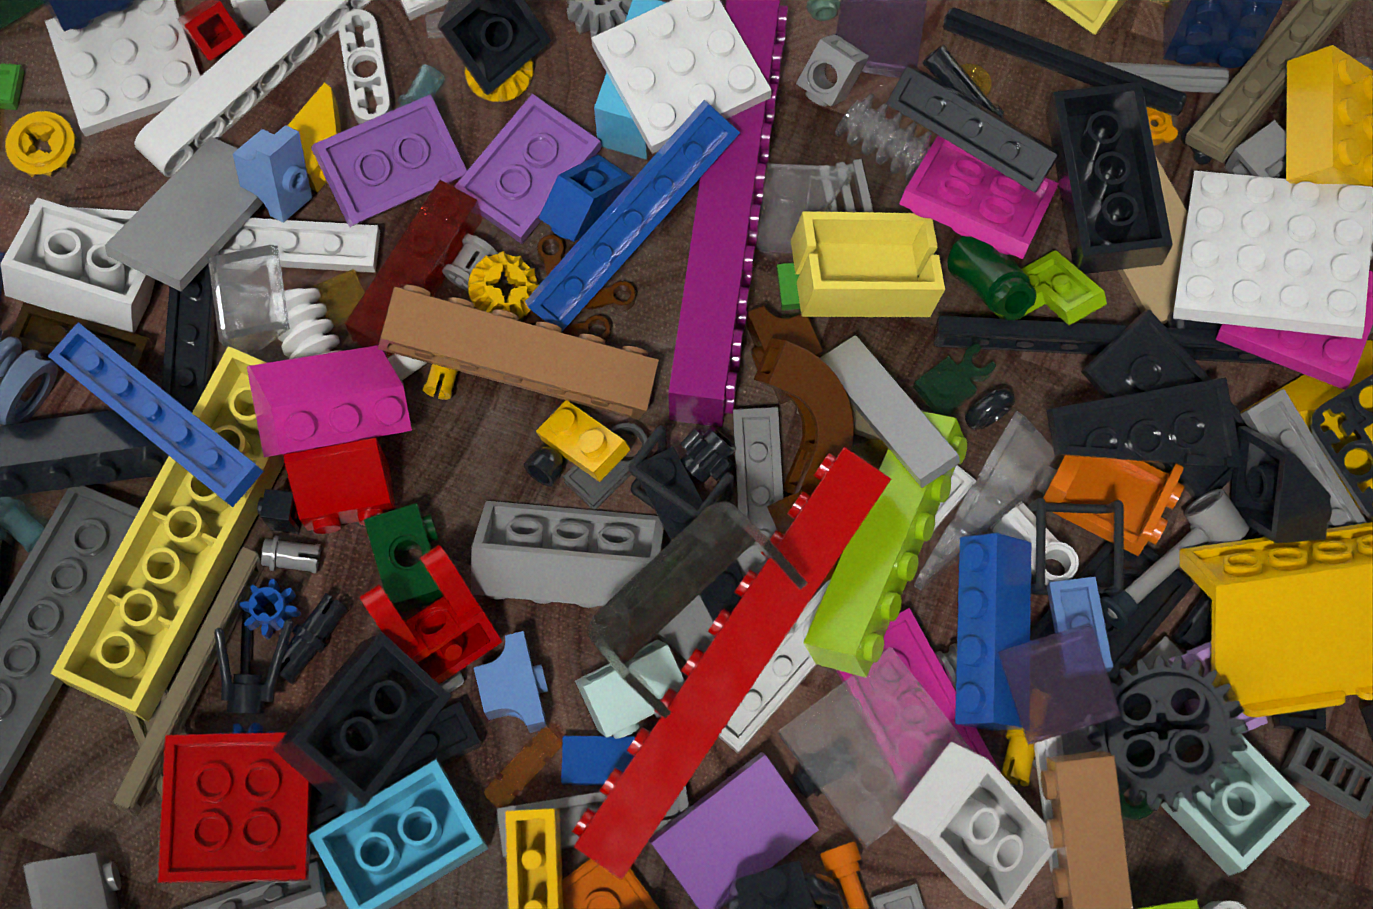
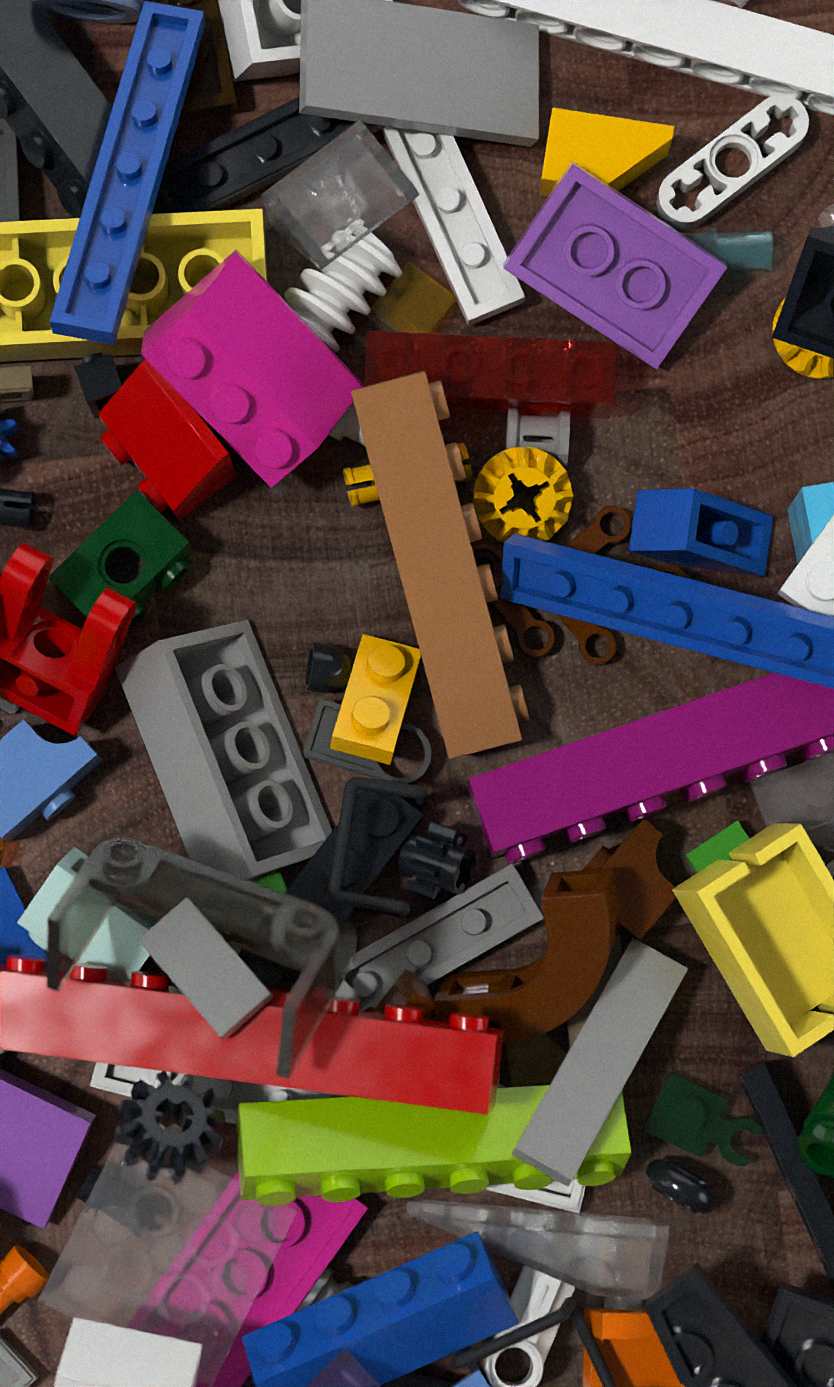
camera: 65 degrees right, 10 degrees up
(275, 171) = (519, 133): medium blue brick -> none
(289, 555) = (58, 422): light grey pin -> none
(523, 164) = (702, 435): medium lavender plate -> none
(705, 612) = (205, 968): none -> light grey tile
(795, 696) = (169, 1106): none -> black gear

